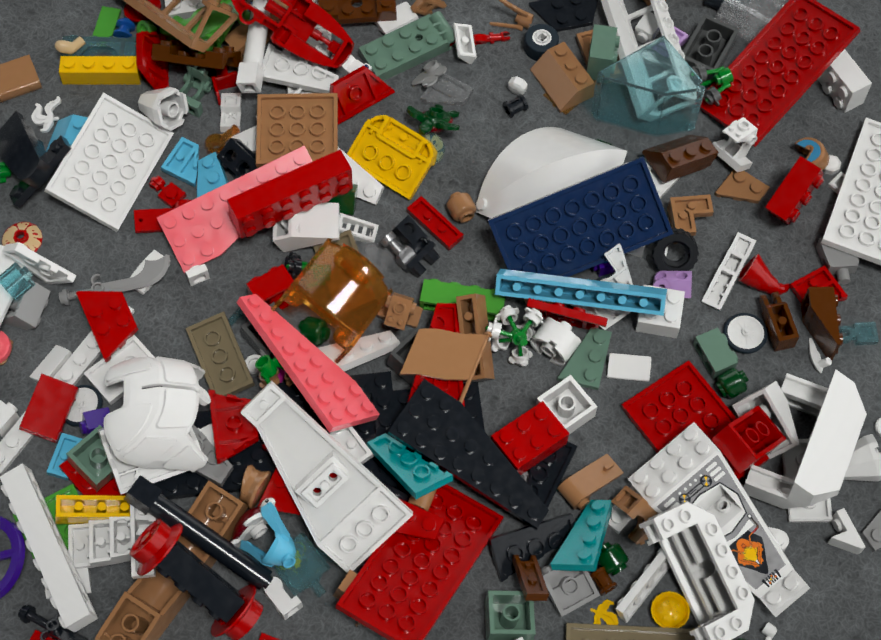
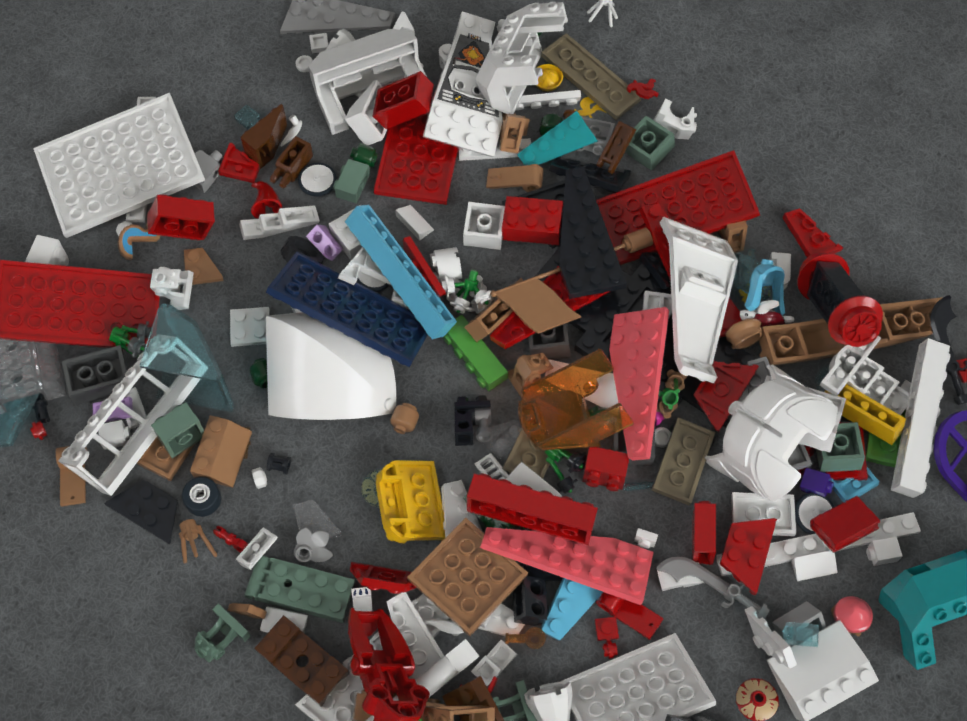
camera: 135 degrees left, 0 degrees up
(148, 499) = (833, 364): black brick -> none
(154, 306) = (704, 532): none -> red brick
(183, 161) = (572, 649): medium azure wing -> none
(408, 467) = (632, 249): teal wing -> none
(434, 120) = (351, 499): dark green animal -> none
(435, 223) = (434, 426): red plate -> none
(588, 360) = (438, 240): sand green wing -> none
(681, 156) = (218, 315): reddish brown slope -> none
(684, 210) = (259, 277): medium nougat panel -> none

